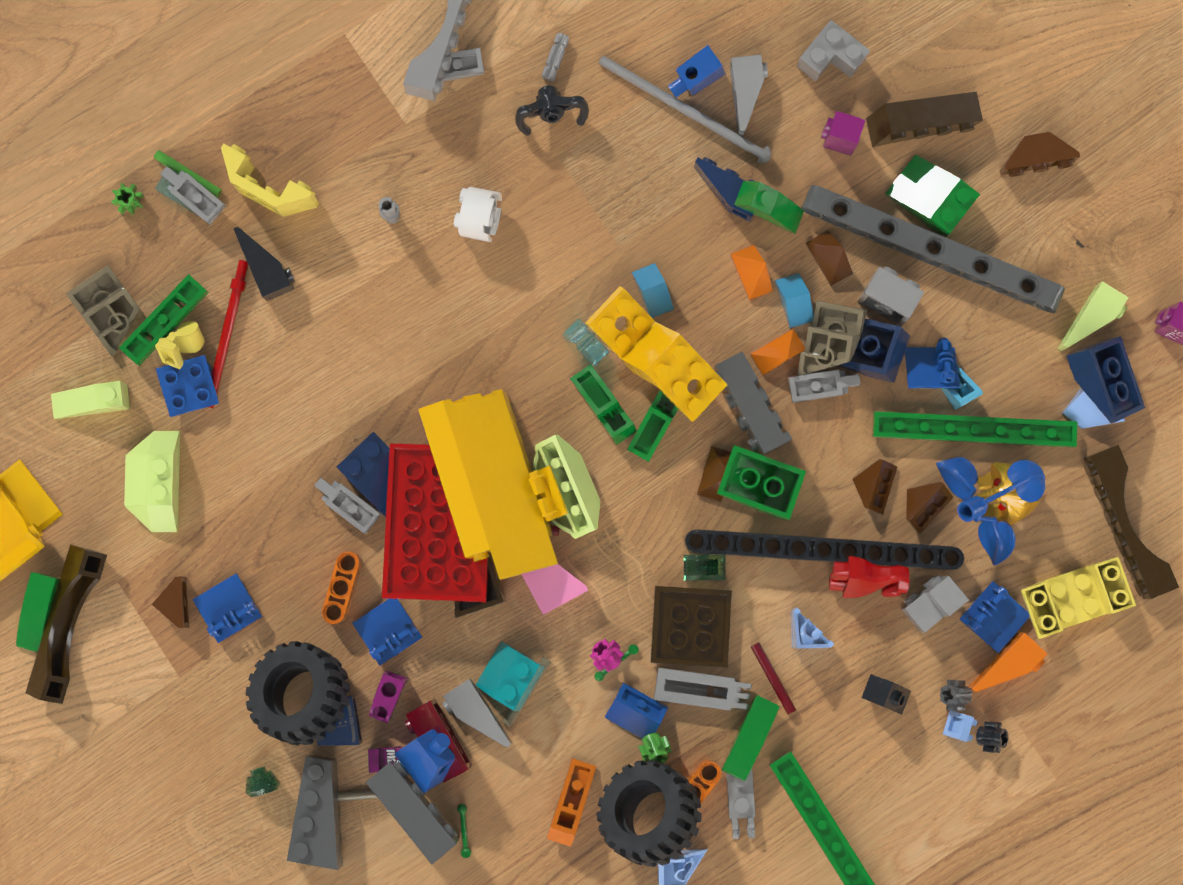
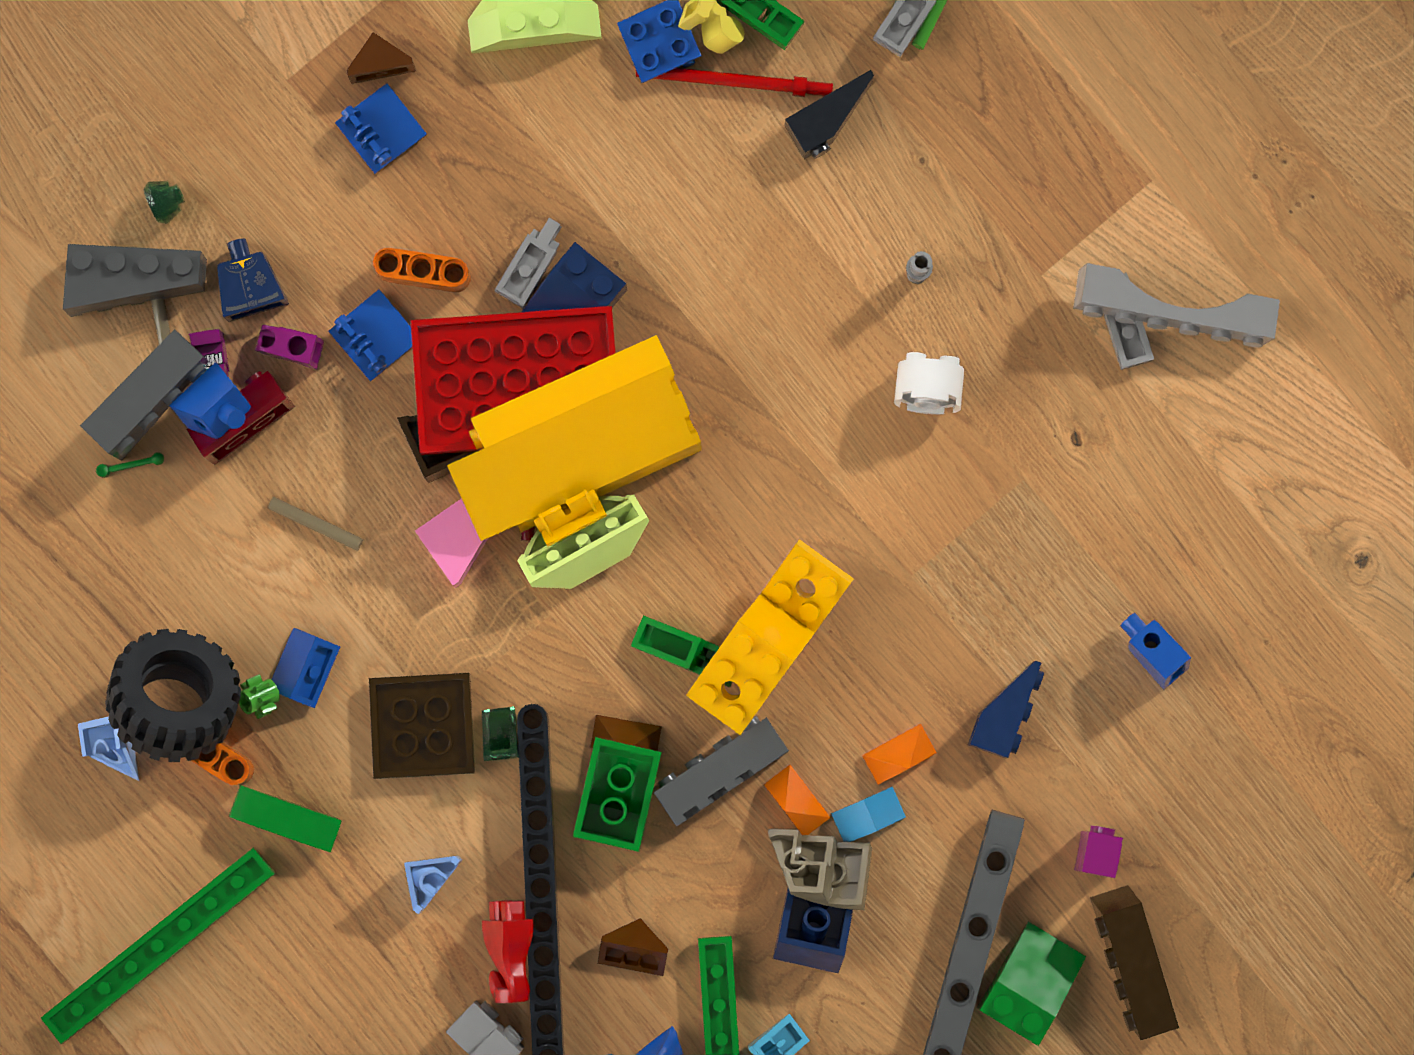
camera: 85 degrees right, 0 degrees up
(271, 681) = (286, 194): black tyre -> none
(293, 200) = (950, 67): light yellow slope -> none
(472, 709) = (284, 456): light grey slope -> none
(509, 676) = (331, 498): teal slope -> none
(550, 108) = (1083, 461): black piece -> none
(555, 57) = (1156, 460): light grey axle -> none
(571, 802) = (179, 597): orange slope -> none
(585, 342) = (777, 545): clear light blue leg -> none
(603, 404) = (699, 578): green slope -> none
(606, 655) = (372, 620): dark pink gear -> none
(632, 649) = (383, 653): green hinge -> none
(653, 290) = (858, 625): dark azure slope -> none
(691, 689) = (341, 735): light grey hinge -> none
(741, 803) = (201, 817): light grey hinge -> none
(747, 80) = (1152, 719): light grey slope -> none
(763, 154) = (1058, 751): light grey bar -> none
(769, 205) = (986, 766): green slope -> none
(773, 678) = (367, 841): dark red bar -> none
(821, 385) = (758, 862): light grey hinge -> none
(830, 257) = (931, 855): reddish brown slope -> none
(834, 47) = (1217, 828): light grey brick -> none
(886, 694) = (360, 990): black brick -> none
(891, 295) = (887, 940): light grey brick -> none
(925, 504) = (616, 1017): reddish brown slope -> none
(932, 366) = (800, 1006): blue hinge -> none

